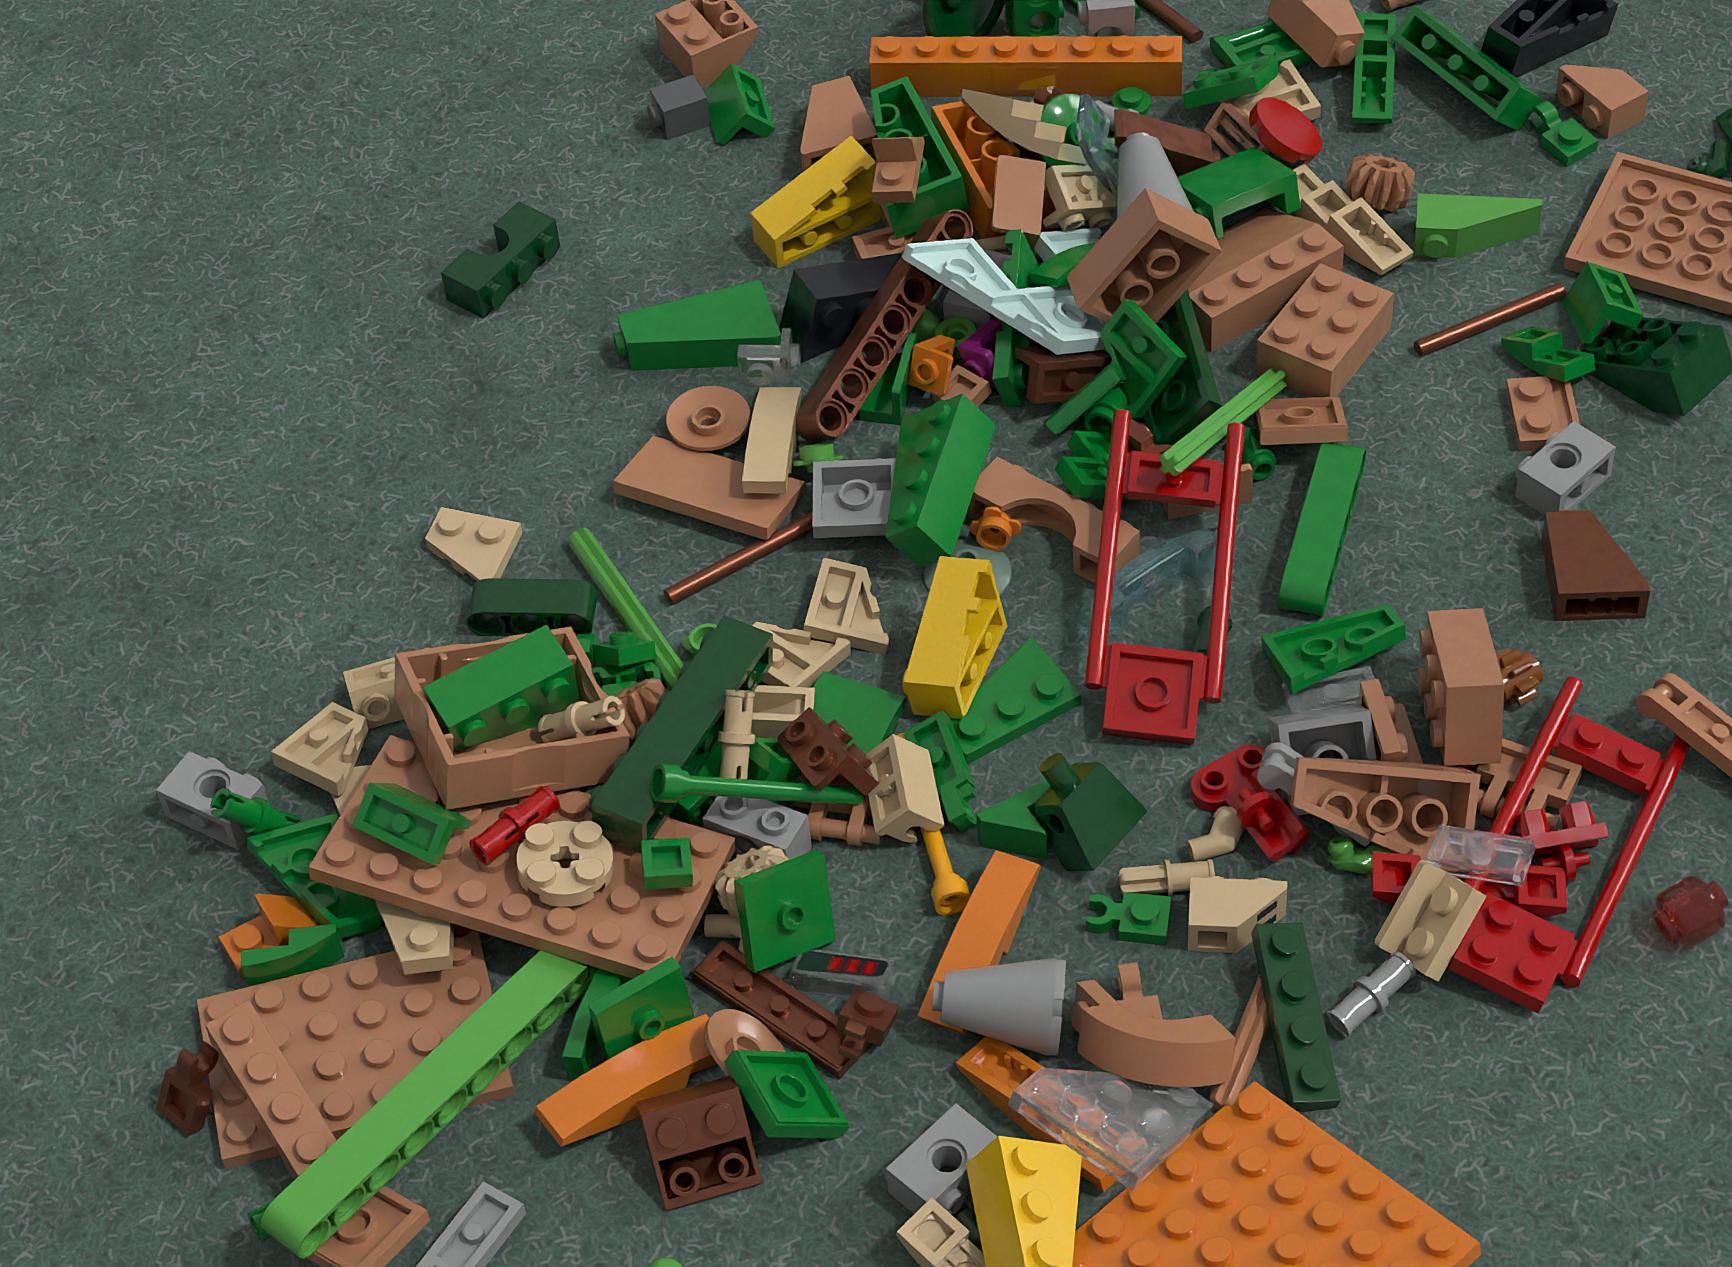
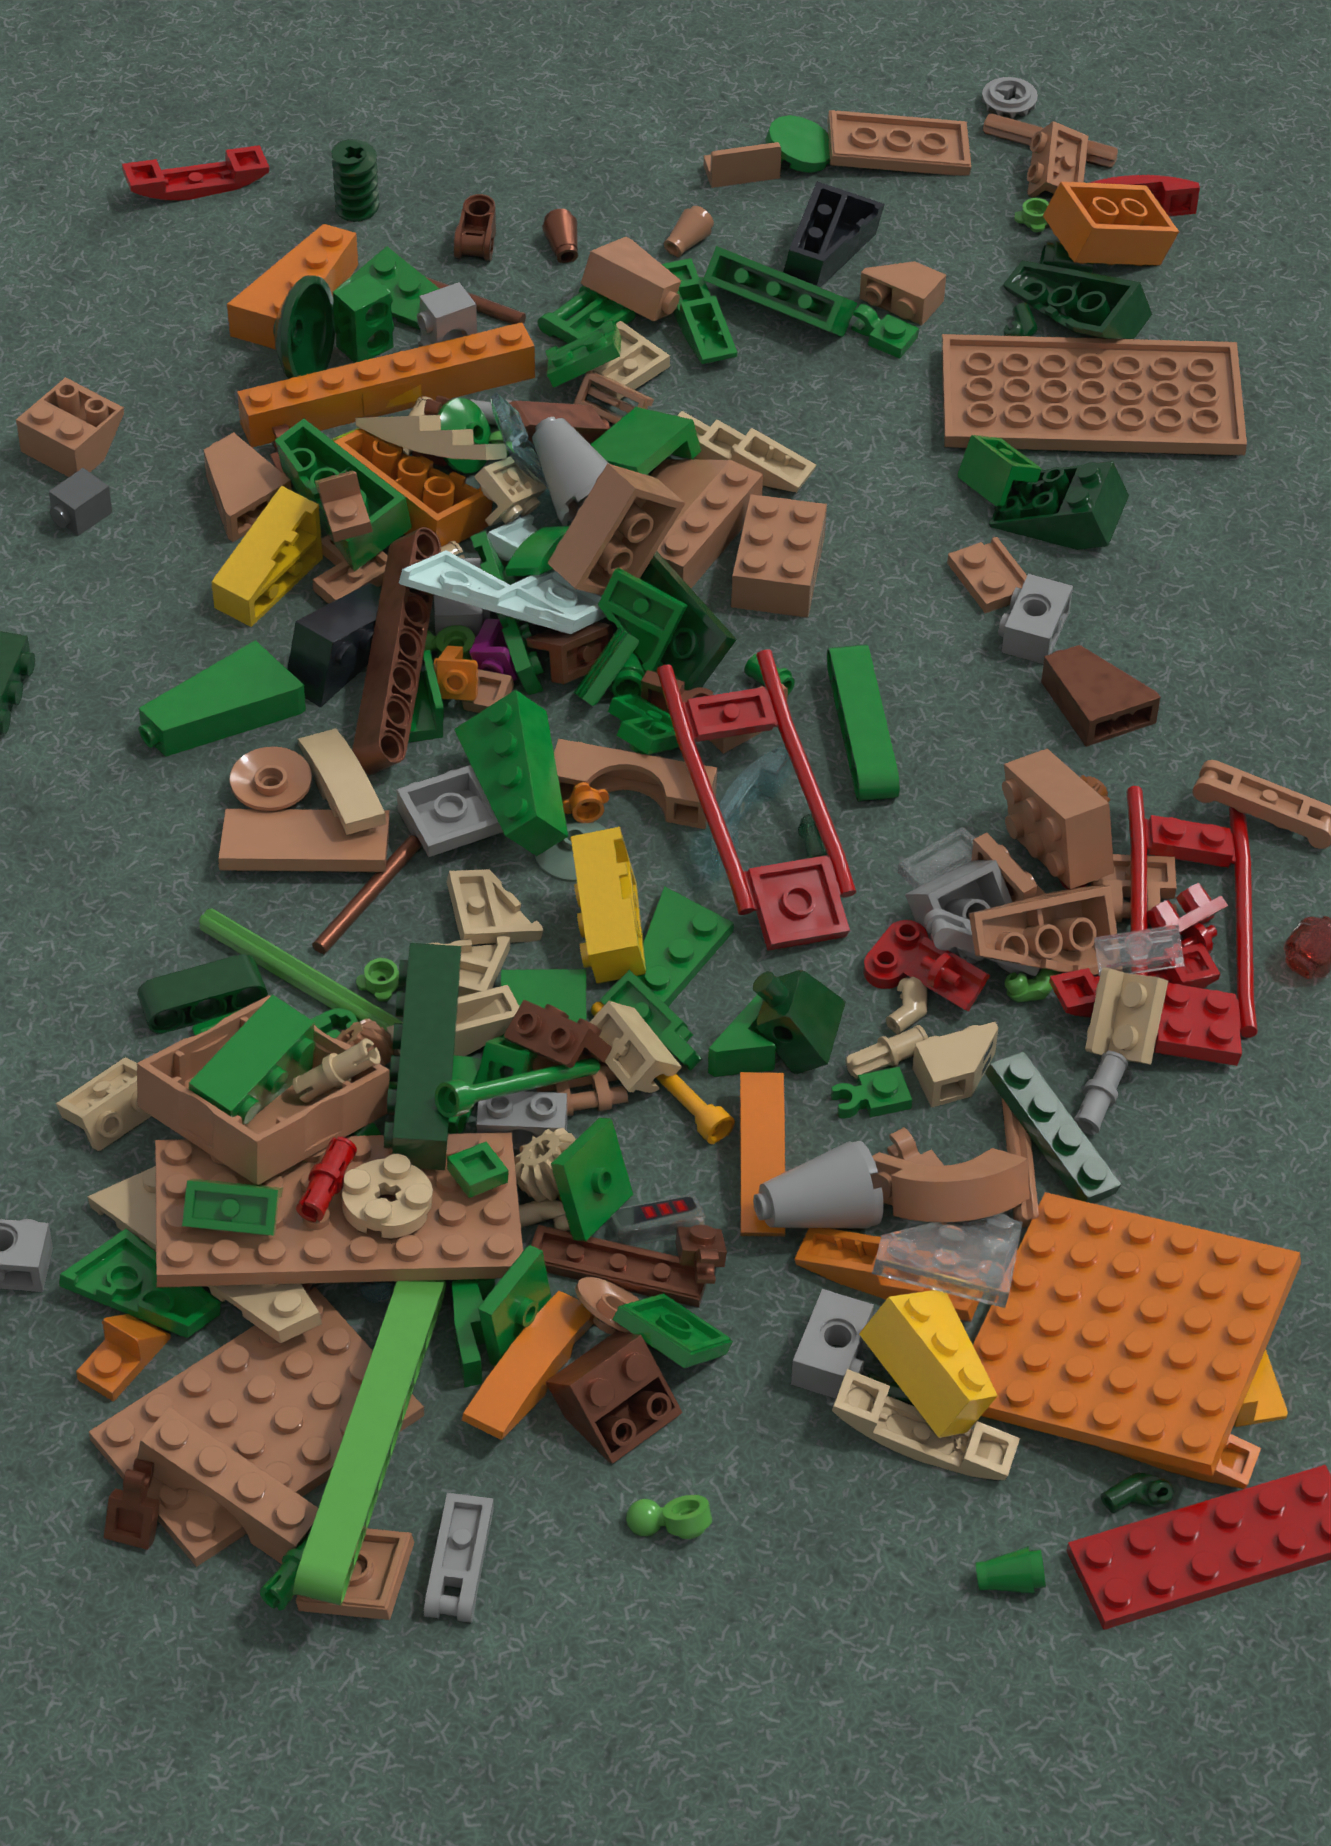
camera: 30 degrees left, 0 degrees up
(252, 814) = (55, 1252): green pin -> none
(307, 951) = (171, 1356): green slope -> none
(324, 748) = (81, 1176): tan wing -> none
(473, 542) = (108, 953): tan wing -> none
(623, 650) = (316, 1003): green plate -> none
(736, 734) = (475, 1041): tan pin -> none
(737, 102) = (134, 487): green panel -> none
(769, 363) = (298, 714): clear bracket -> none
(815, 453) = (388, 783): bright green plate -> none
(1018, 196) = (467, 502): nougat panel -> none
(1133, 99) = (498, 386): green plate -> none
(1214, 427) = (745, 653): bright green axle -> none
(1285, 130) = (656, 385): red tile -> none
(1301, 421) = (798, 635): nougat plate -> none
(1331, 645) = (922, 819): green wing -> none
(1380, 182) = (758, 409): nougat gear -> none
(1467, 224) = (846, 429): bright green slope -> none
(1489, 319) = (905, 507): copper bar -> none
(1544, 353) = (965, 523): green slope -> none

